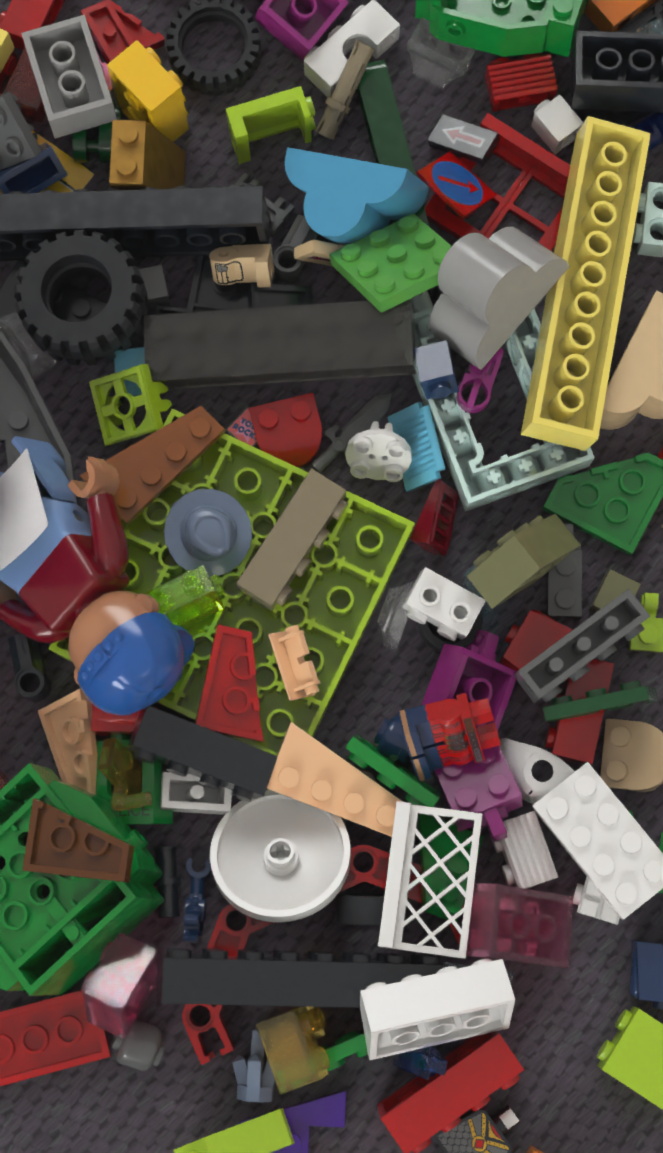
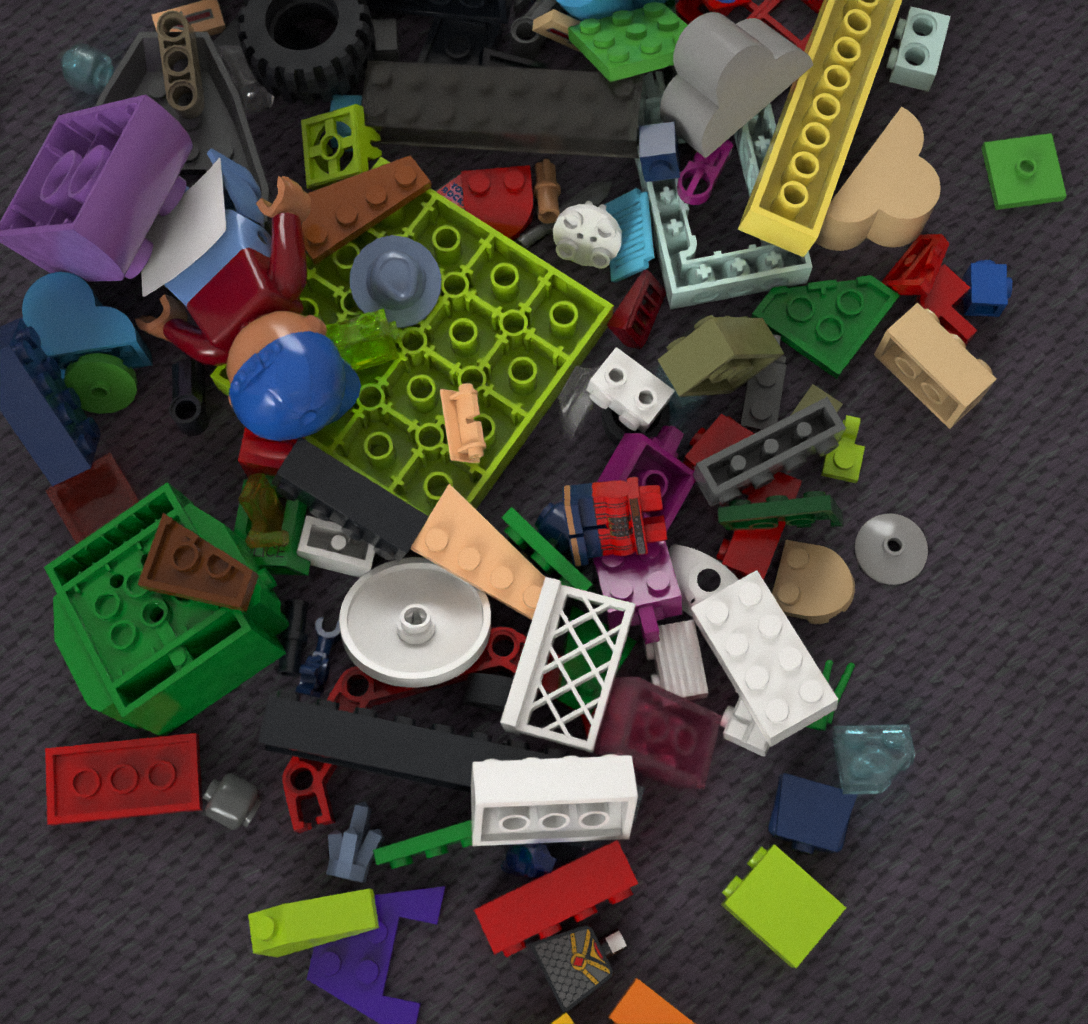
camera: 10 degrees right, 5 degrees down
(71, 739) = (219, 472): light nougat wing -> none
(120, 985) = (221, 730): clear pink brick -> none
(230, 690) = (392, 438): red wing -> none
(243, 264) = (478, 27): tan leg -> none
(292, 540) = (482, 300): dark tan brick -> none
(293, 1047) = (395, 822): clear yellow brick -> none
(332, 414) = (547, 191): none -> medium nougat axle

